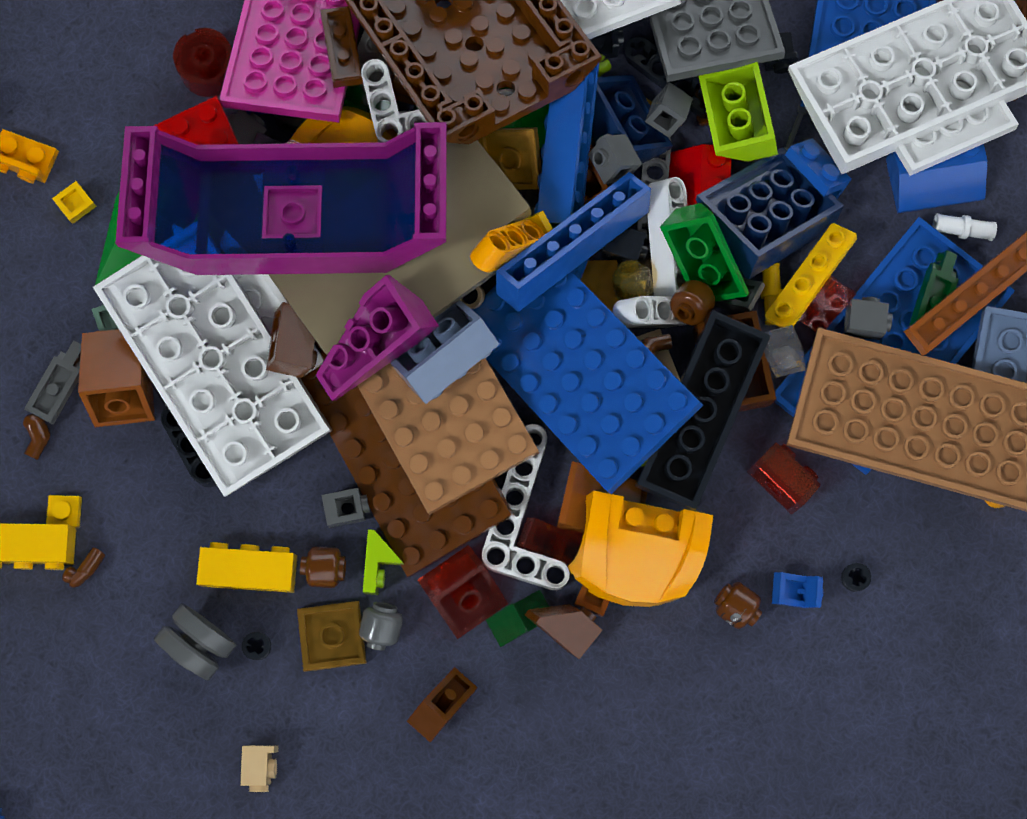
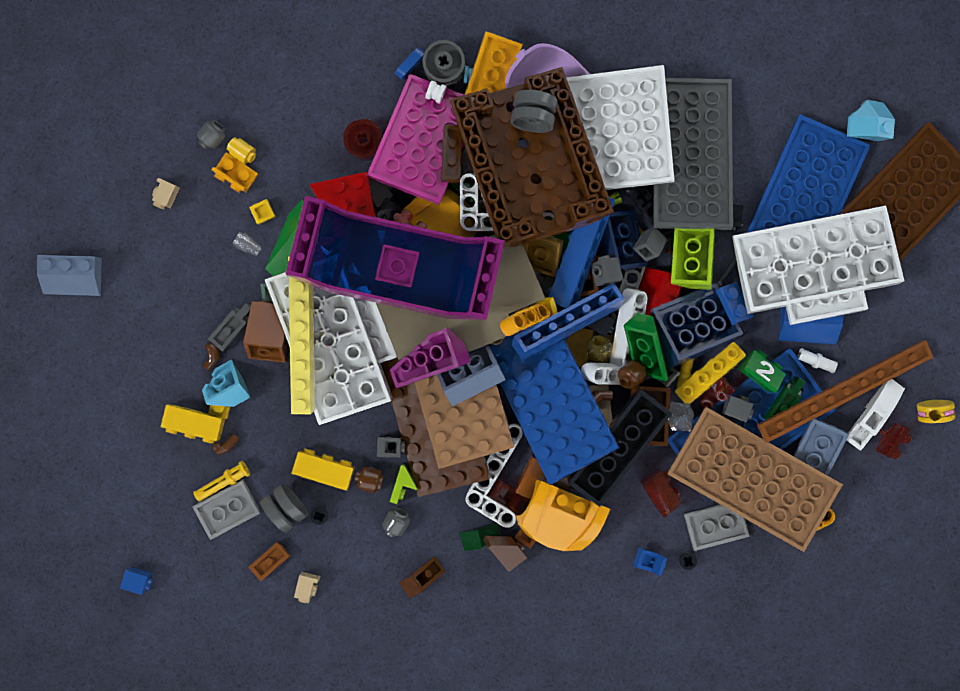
camera: 15 degrees right, 10 degrees up
(25, 121) = (241, 150): none -> yellow brick
(58, 254) = (247, 244): none -> clear cone
(67, 476) = (226, 386): none -> medium azure slope
(99, 618) = (229, 477): none -> yellow pin
(104, 672) = (226, 509): none -> light grey tile
(169, 366) = (301, 346): none -> light yellow brick
(189, 738) = (269, 561): none -> dark orange plate
(290, 344) = (378, 345): reddish brown slope -> none
(331, 636) = (365, 520): pearl gold tile -> none
(463, 591) = (449, 513): clear red slope -> none
(738, 605) = (612, 561): reddish brown head -> none
(883, 513) = (714, 526): none -> light grey tile
(887, 255) = (761, 371): none -> green slope

